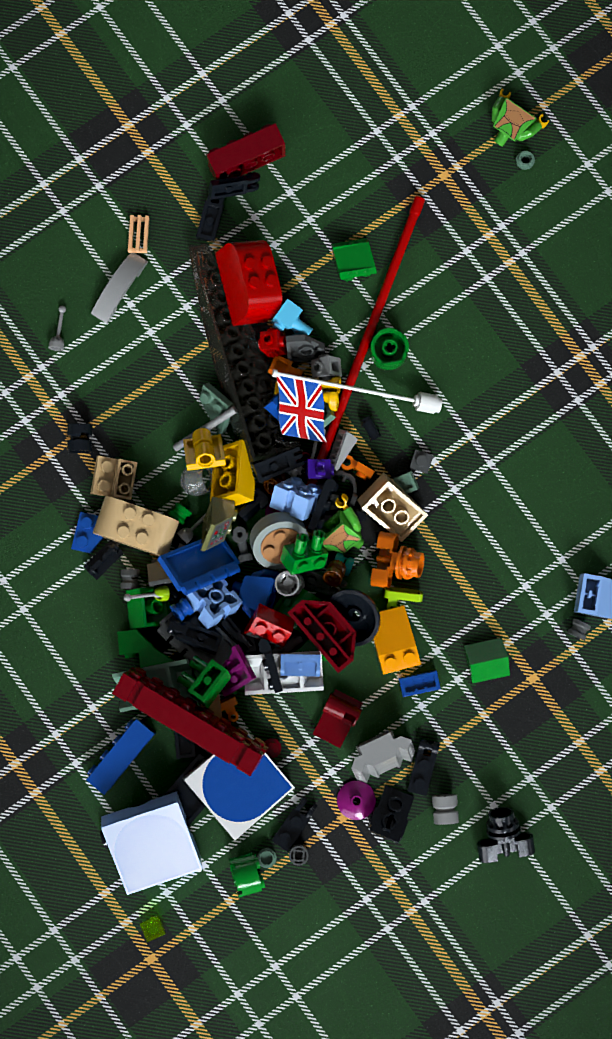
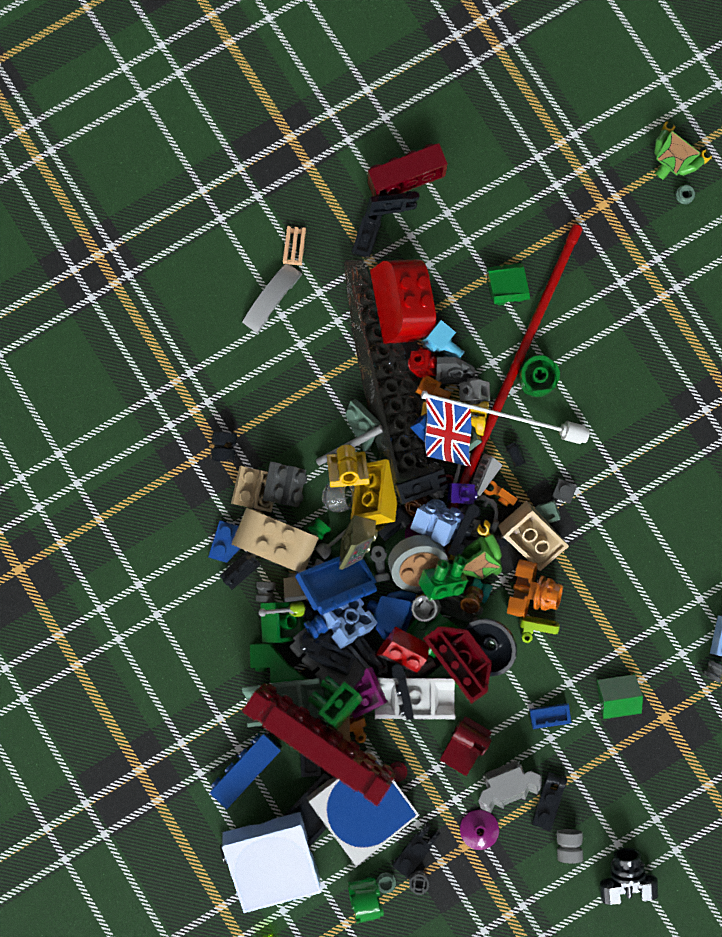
camera: 10 degrees right, 0 degrees up
(57, 343) = (206, 349): light grey hinge -> none
(142, 471) = (284, 484): none -> dark grey plate
(300, 665) = (433, 692): medium blue hinge -> none
(391, 815) = (516, 845): black piece -> none
(395, 641) = (529, 674): light orange slope -> none

